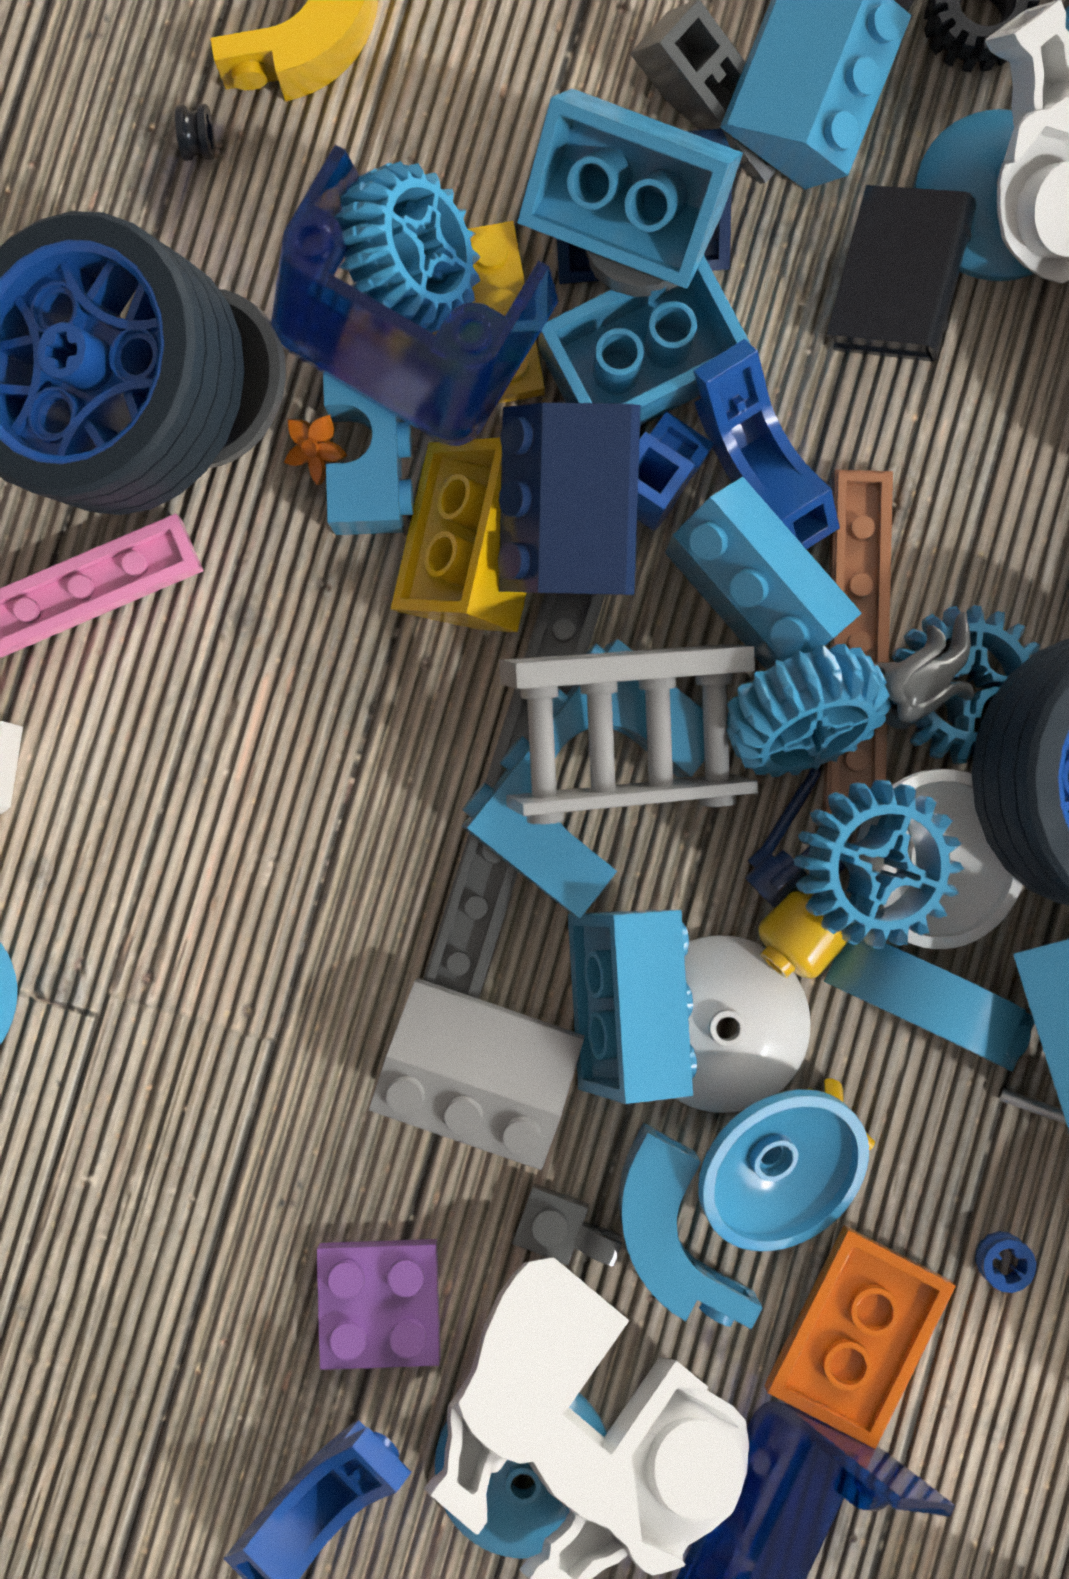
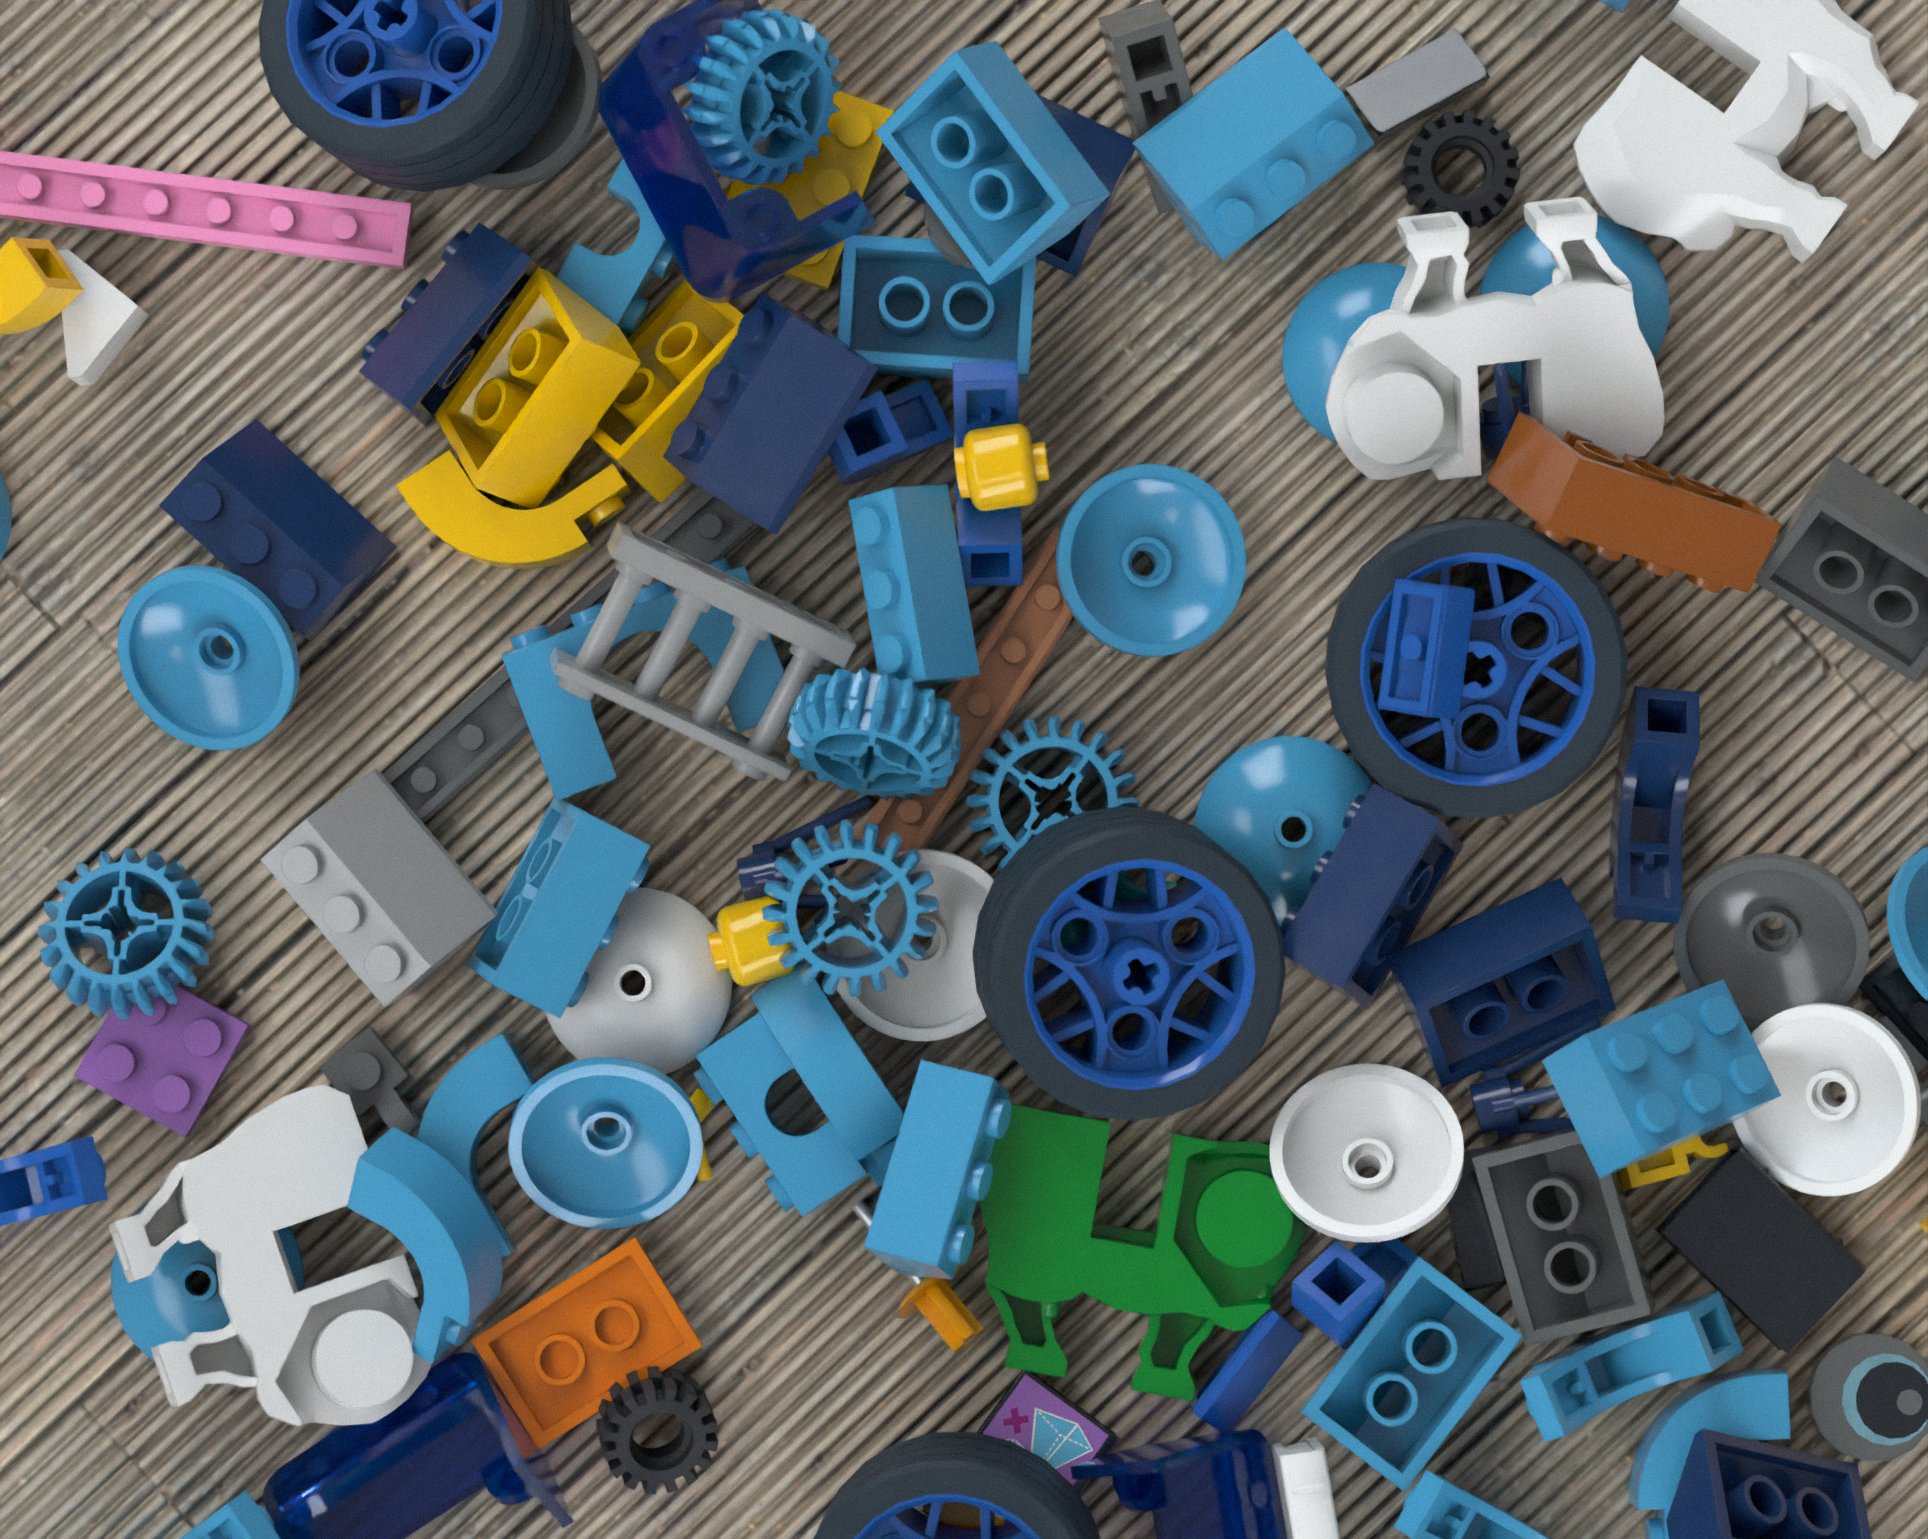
camera: 30 degrees right, 0 degrees up
(222, 833) = (279, 527): none -> dark blue slope
(225, 993) = (185, 672): none -> dark azure dish
(263, 585) = (446, 321): none -> dark blue slope
(269, 1194) = (78, 926): none -> dark azure gear
(313, 446) = (578, 213): orange plant -> none
(365, 599) = (536, 391): none -> yellow slope
(405, 732) = (505, 536): none -> yellow arch
(694, 1324) = (442, 1226): none -> dark azure arch
(778, 436) = (1000, 467): none -> yellow head
(901, 272) = (1224, 378): black piece -> none
(924, 681) = (997, 770): dark grey piece -> none
(950, 1085) = (804, 1166): none -> dark azure arch
(955, 426) = (1192, 552): none -> dark azure dish
(981, 1394) = (663, 1462): none -> black tyre
(1022, 1273) = (746, 1364): blue bush -> none

